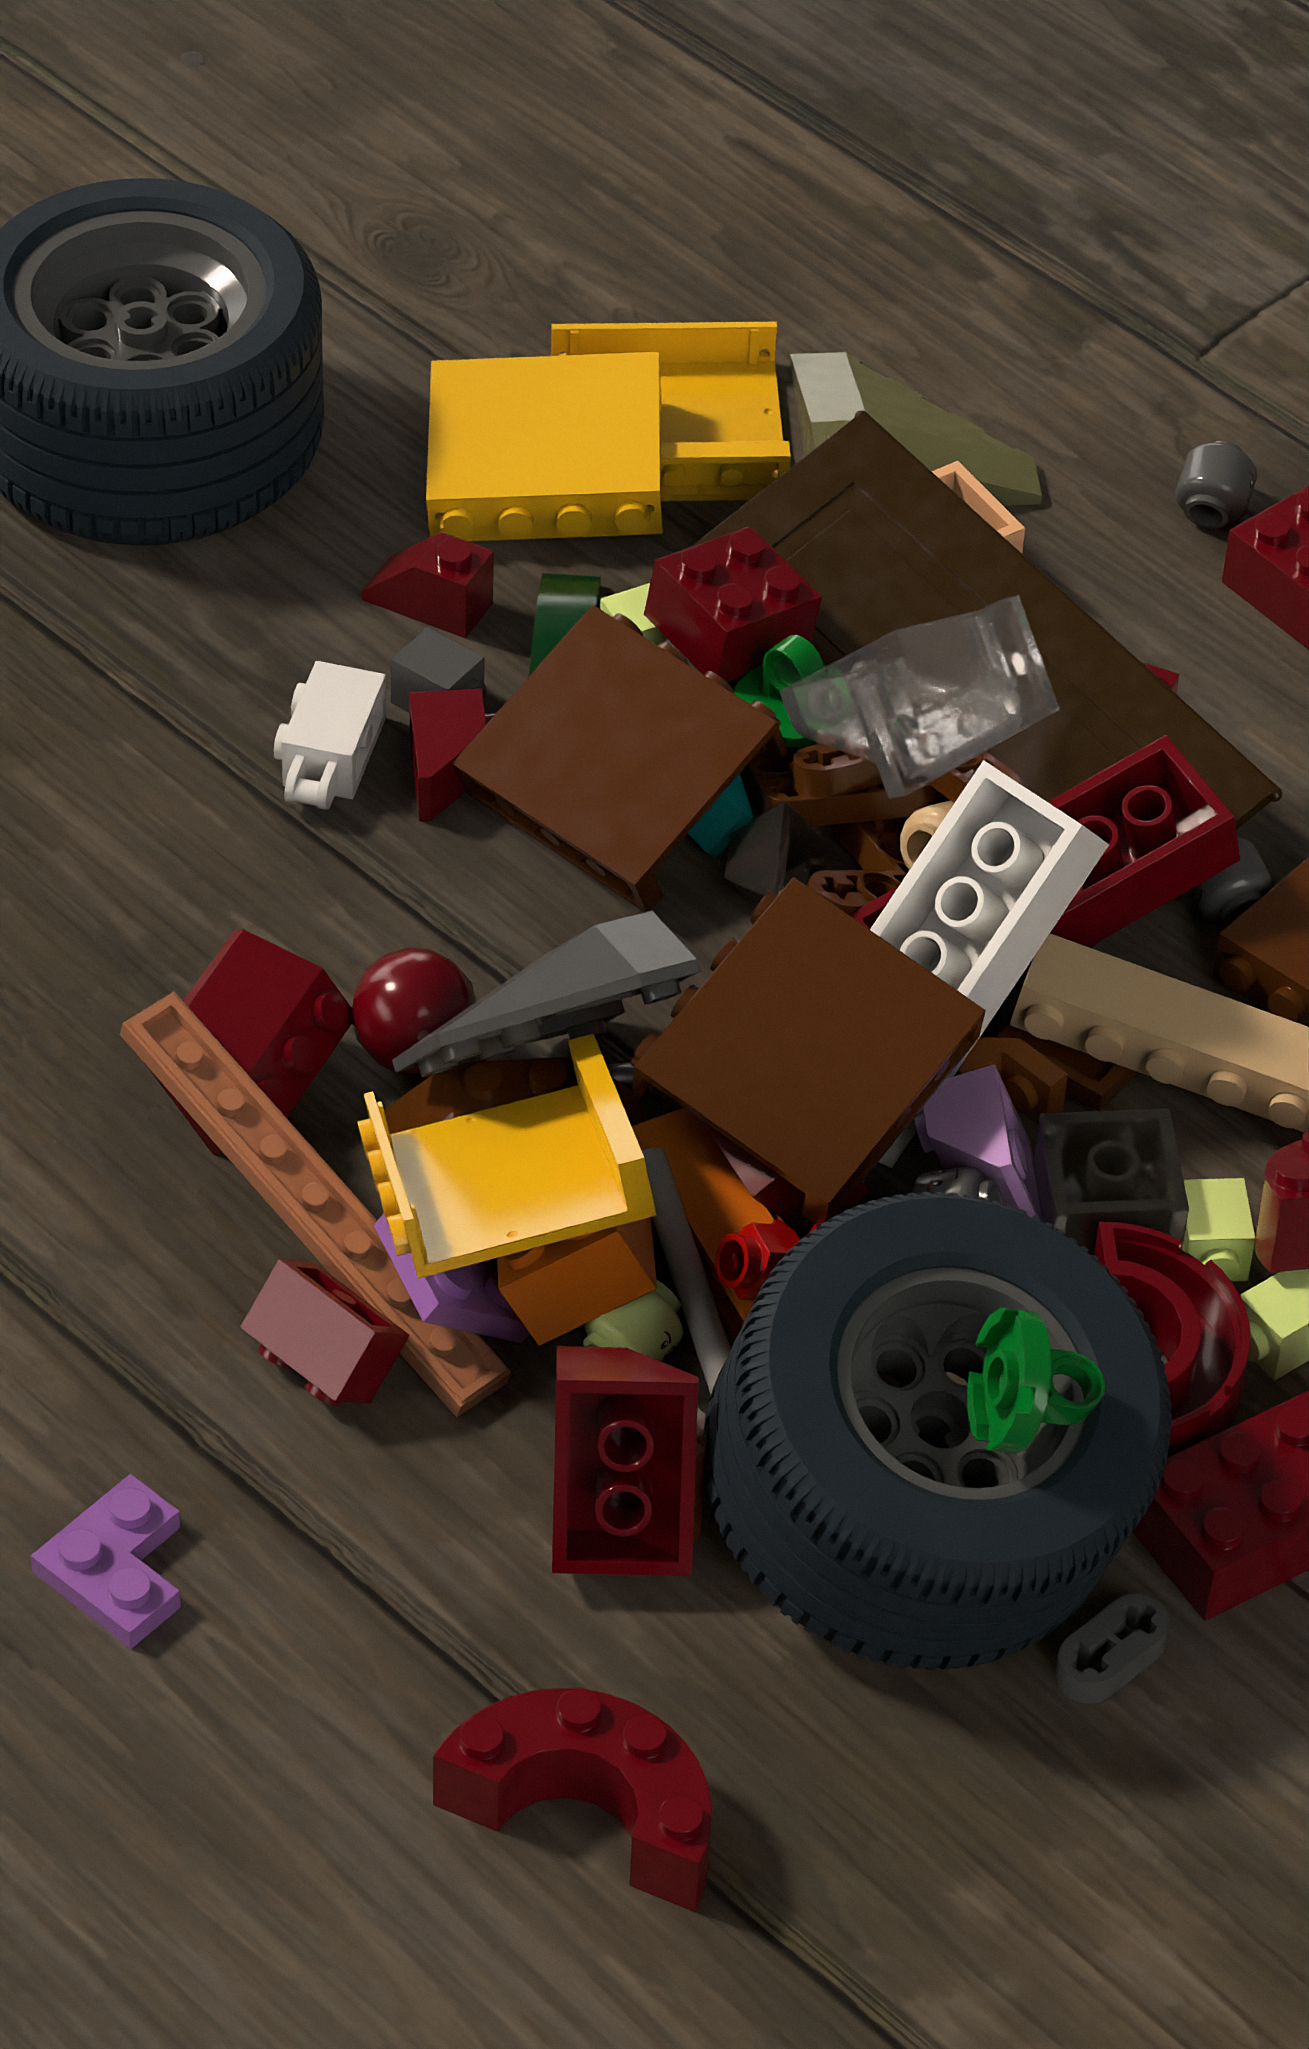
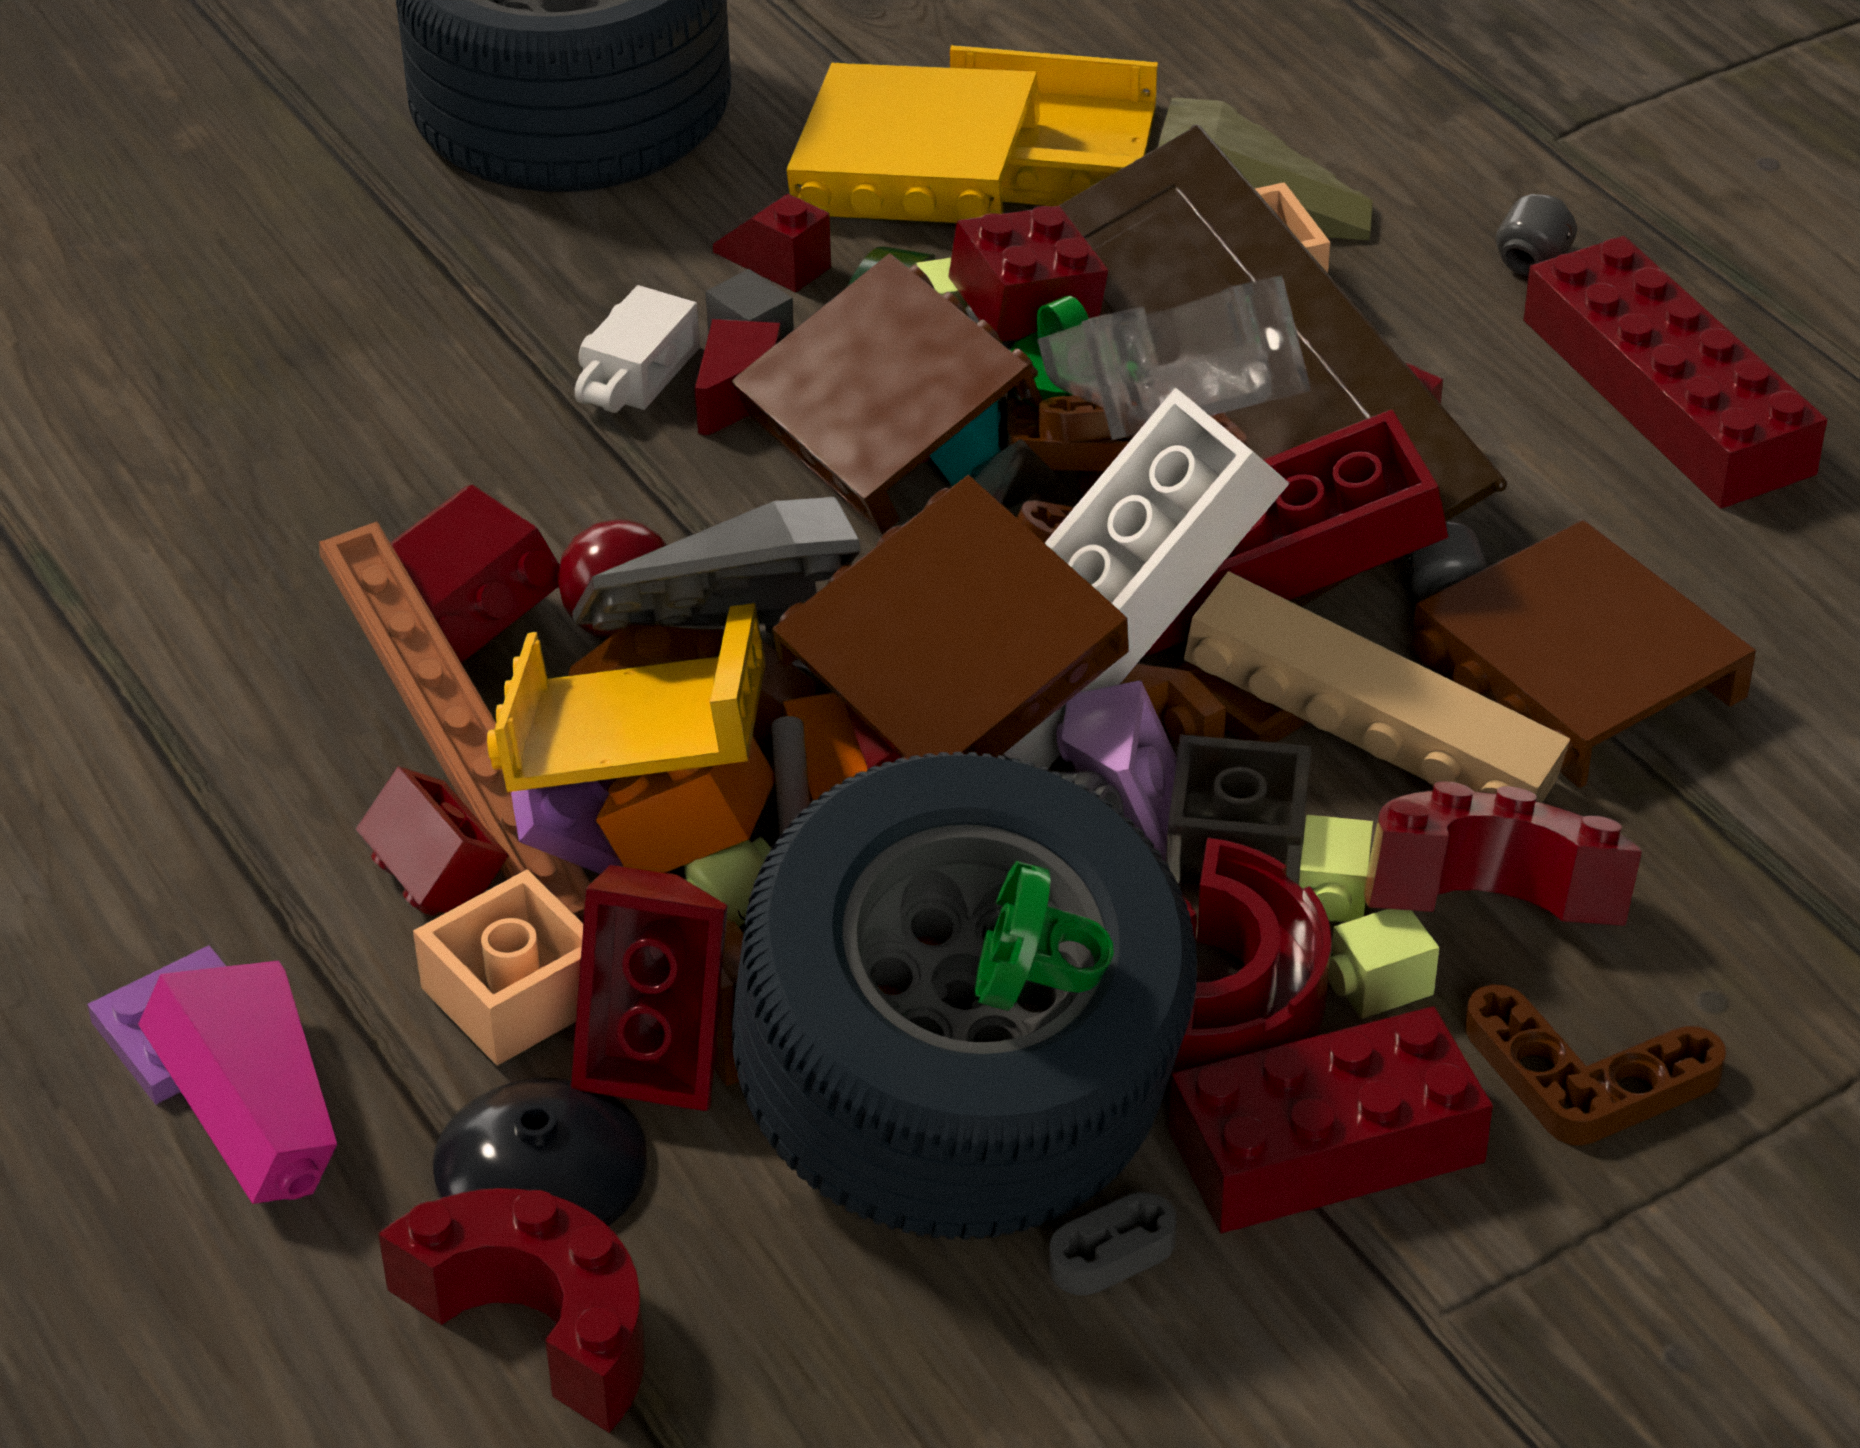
camera: 15 degrees right, 5 degrees down
(232, 1609) = (246, 1073): none -> dark pink slope
(454, 1454) = (504, 966): none -> light nougat brick
(492, 1651) = (545, 1140): none -> black dish

